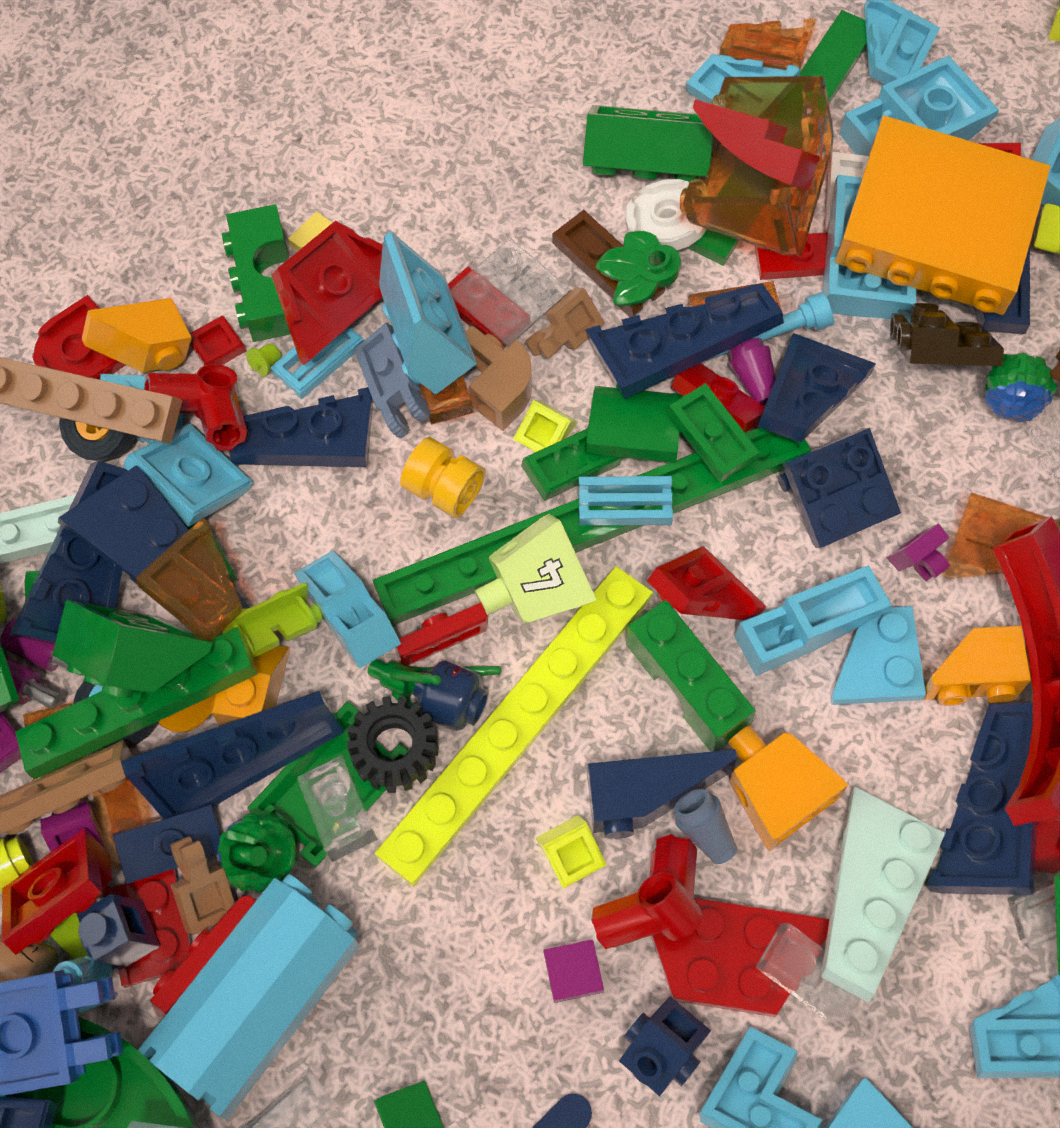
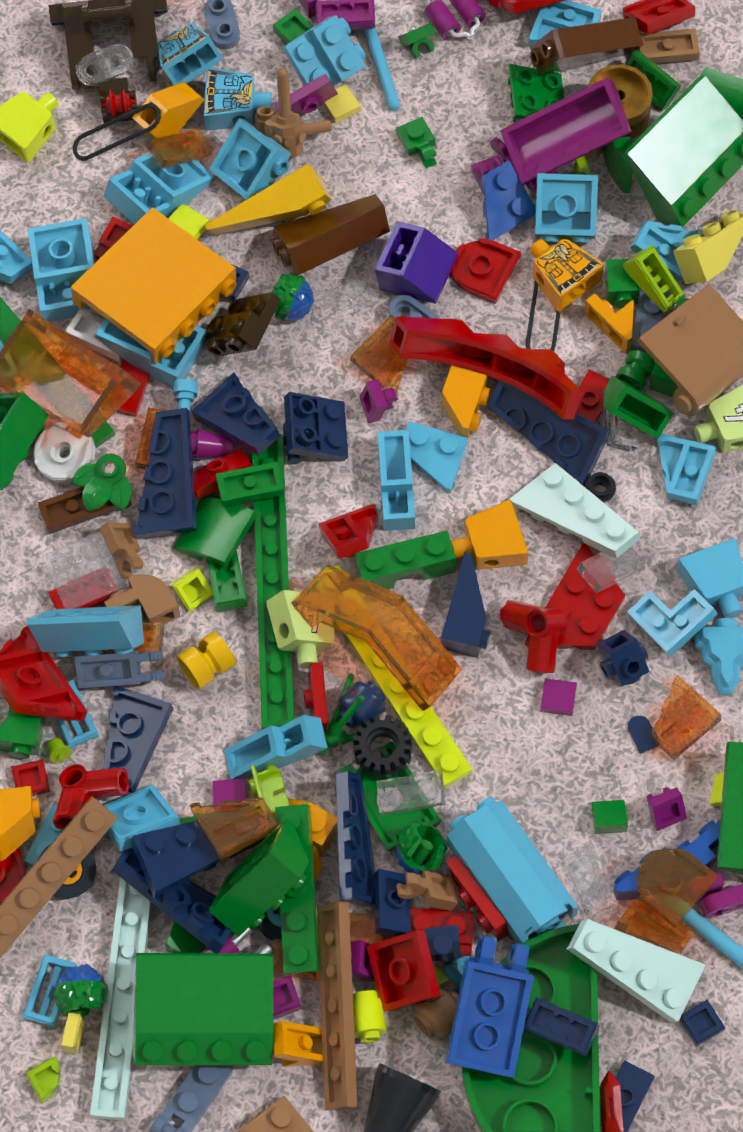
camera: 70 degrees left, 0 degrees up
(265, 577) = (229, 790): none -> magenta tile
(560, 679) = (386, 625): none -> clear orange windscreen
(571, 851) = (484, 673): neon yellow slope -> none
(625, 493) = (281, 531): medium azure tile -> none
(705, 824) = (501, 587): sand blue cone -> none
(759, 144) = (57, 370): red slope -> none
(944, 901) = (601, 479): none -> black plate

